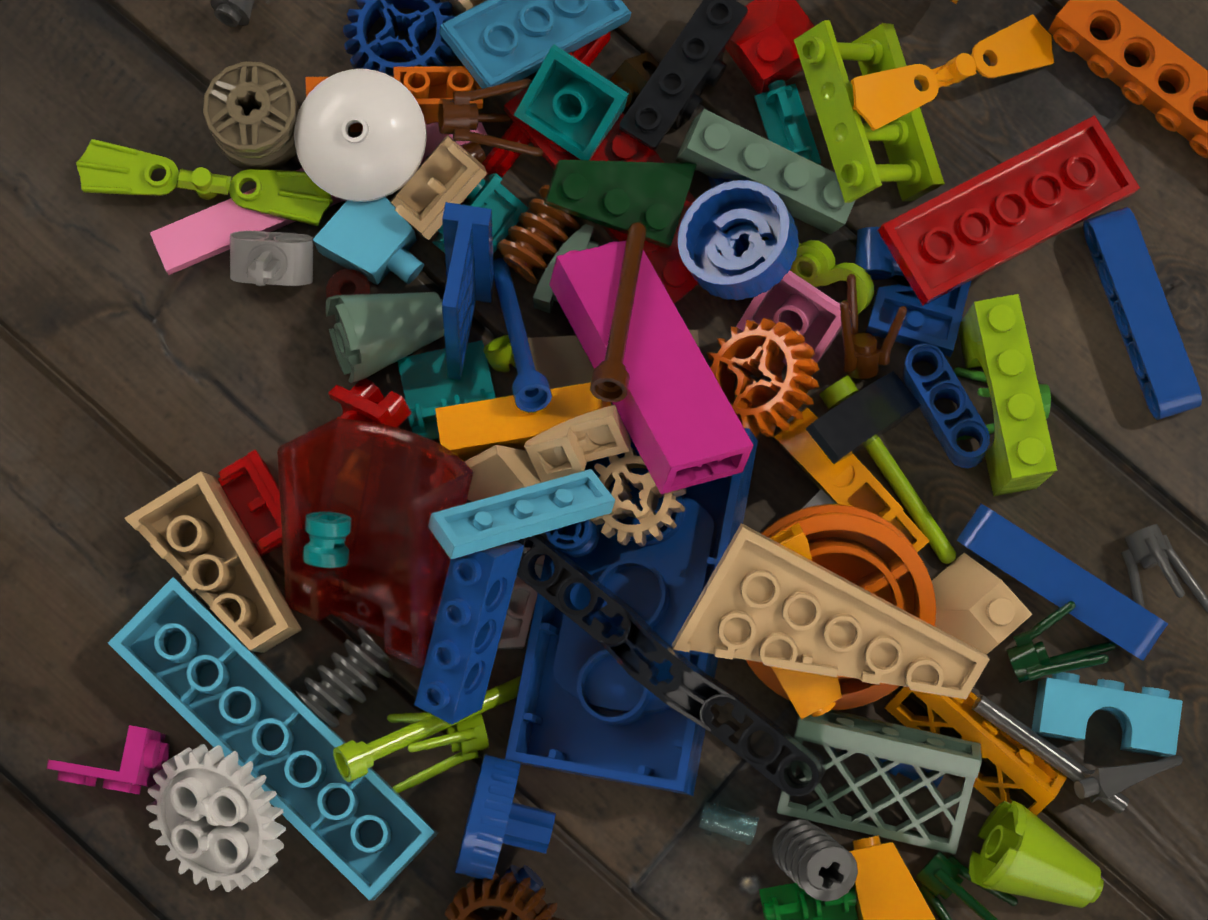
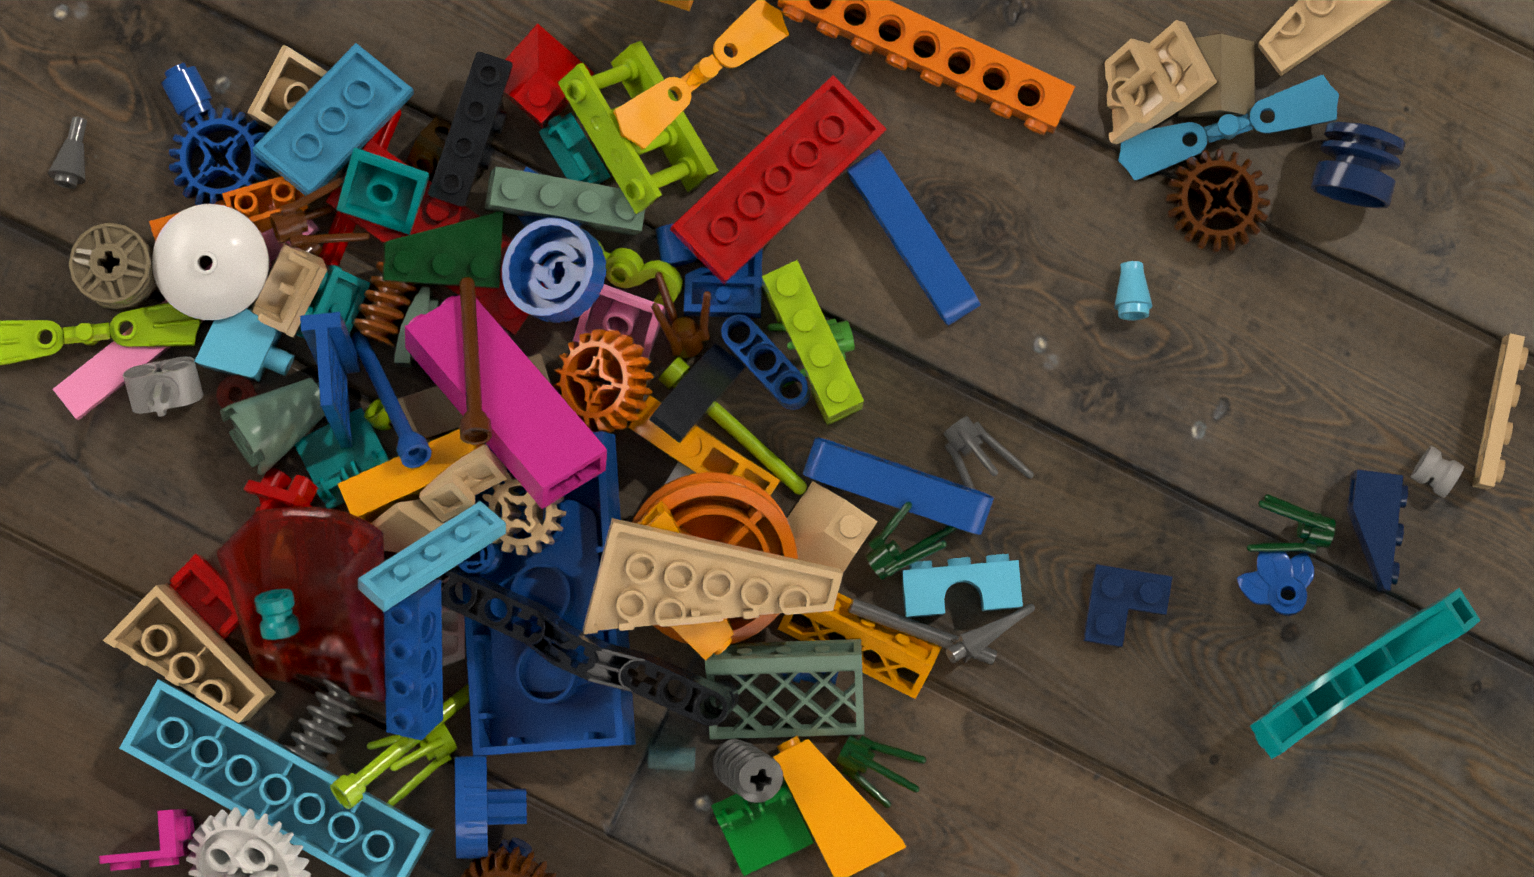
camera: 15 degrees left, 5 degrees up
(1032, 860) = (928, 723): lime cone -> none

